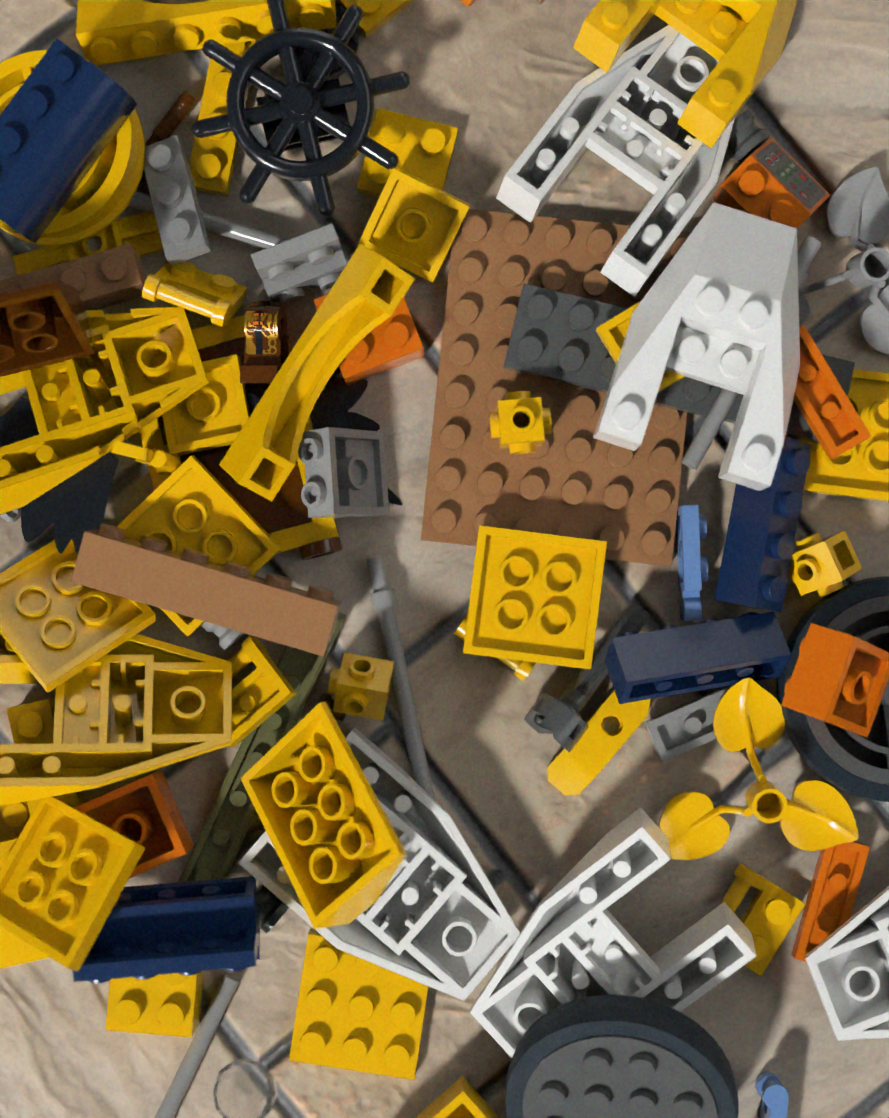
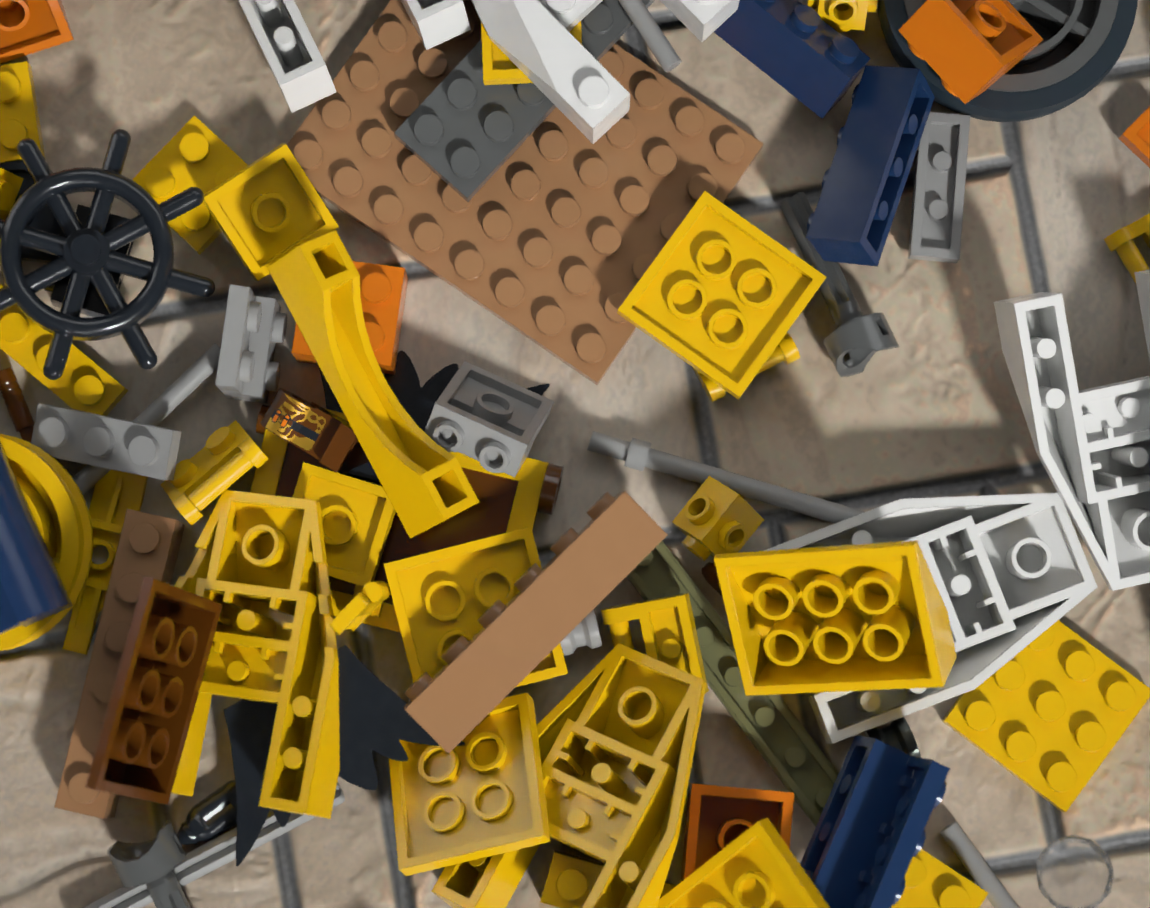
camera: 70 degrees left, 5 degrees down
(515, 438) = (530, 228): yellow brick -> none
(576, 769) = (920, 352): yellow piece -> none
(691, 566) = (772, 123): medium blue plate -> none
(810, 821) = (1093, 140): yellow plant -> none

